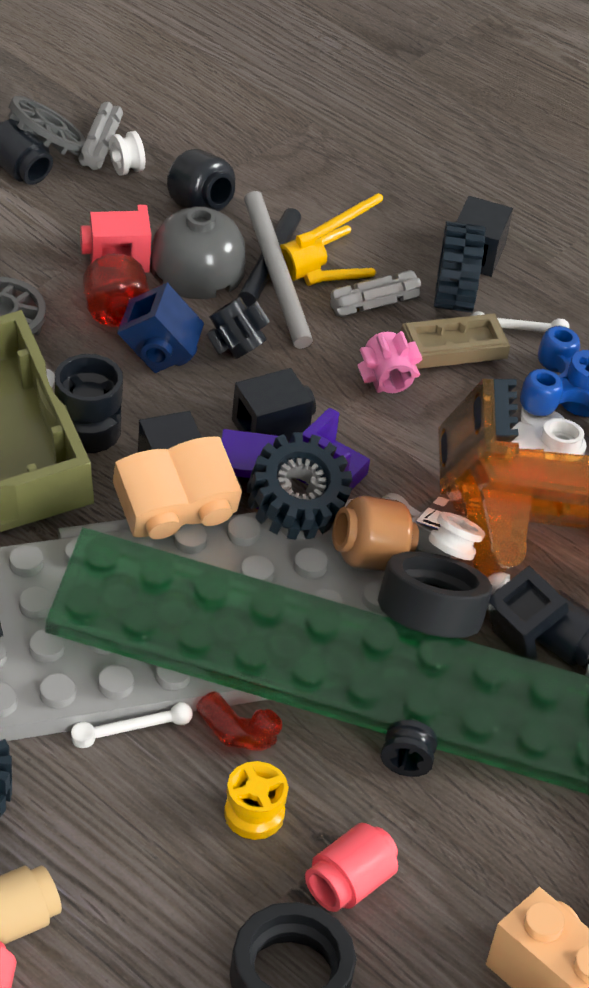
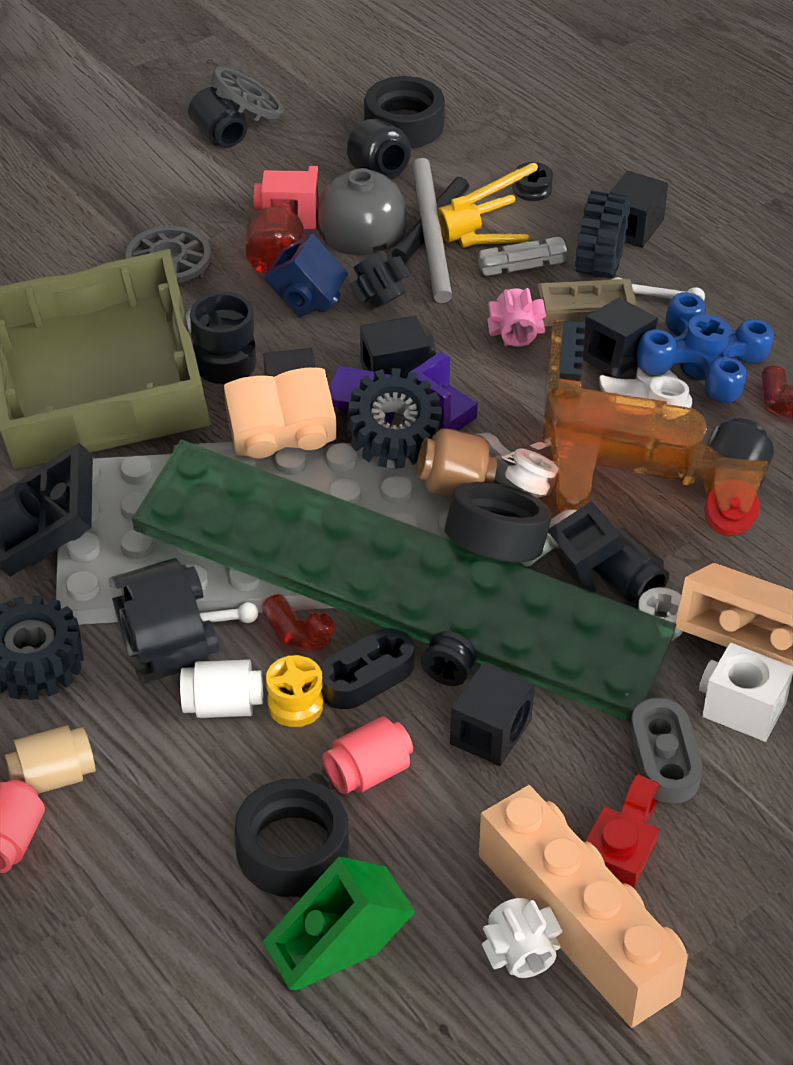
camera: 15 degrees right, 0 degrees up
(97, 141) = (298, 106): light grey axle -> none
(104, 733) = (163, 619): none -> black brick
(127, 153) = (317, 121): white bush -> none
(178, 805) = (221, 688): none -> white brick
(219, 118) = (408, 94): none -> black tyre
(331, 774) = (368, 670): none -> black beam
(368, 220) = (534, 191): none -> black bush
(469, 806) = (491, 713): none -> black brick
(498, 361) = (614, 335): none -> black brick

